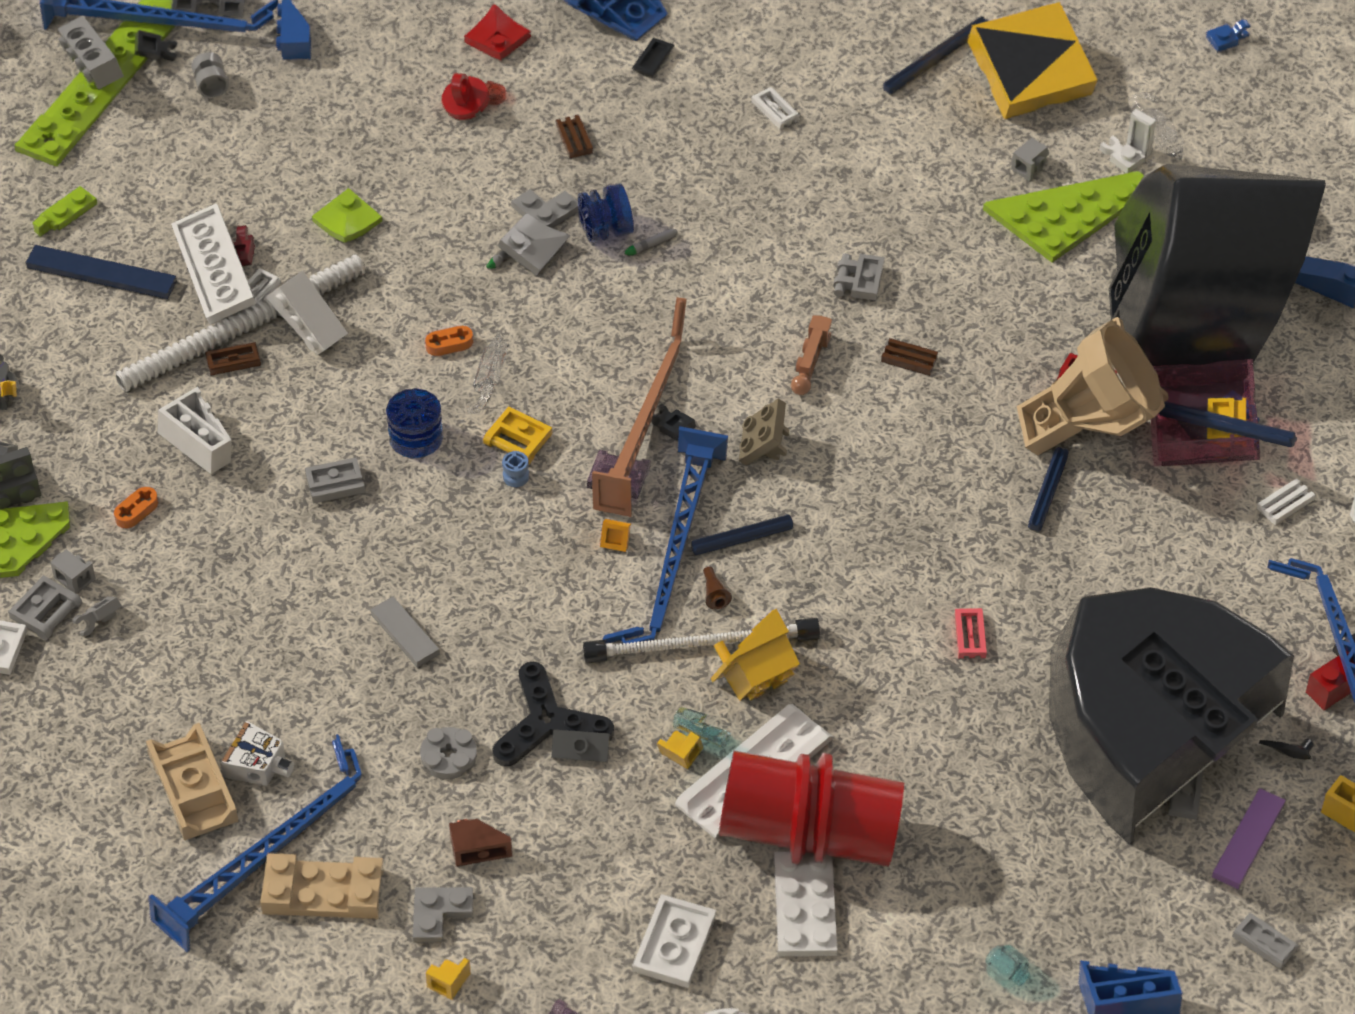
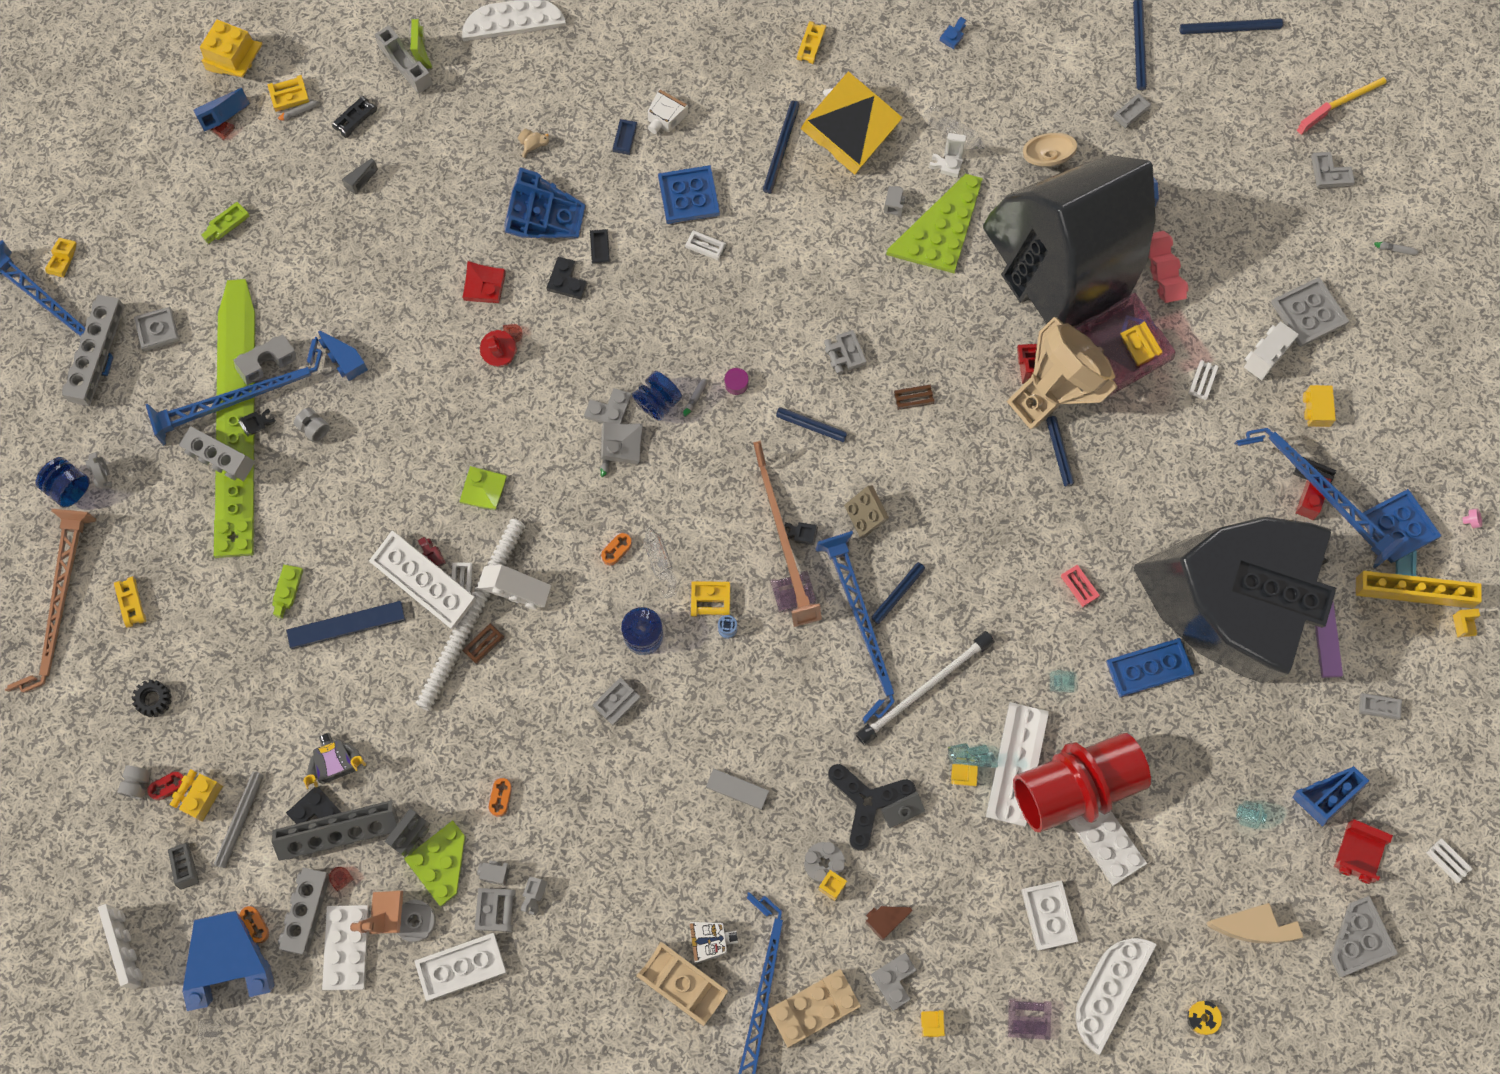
camera: 30 degrees left, 20 degrees up
(195, 431) = (502, 719): white wedge -> none
(438, 774) = (832, 885): none -> yellow panel
(569, 123) = (579, 330): reddish brown tile -> none
(588, 69) = (562, 282): none -> black plate
(615, 535) = (822, 640): light orange tile -> none
(709, 246) = (736, 381): none -> magenta piece
(716, 593) = (912, 647): reddish brown cone -> none
(760, 661) = (976, 687): yellow piece -> none
(766, 327) = (811, 424): none -> dark blue axle
(792, 52) = (688, 194): none -> blue plate
(817, 338) = (849, 412): nougat plate -> none
(875, 717) = (1061, 681): none -> clear light blue slope
(995, 757) = (1149, 667): none -> blue tile
(1229, 424) = (1154, 349): dark blue axle -> none
(1319, 364) = (1166, 269): none -> coral brick

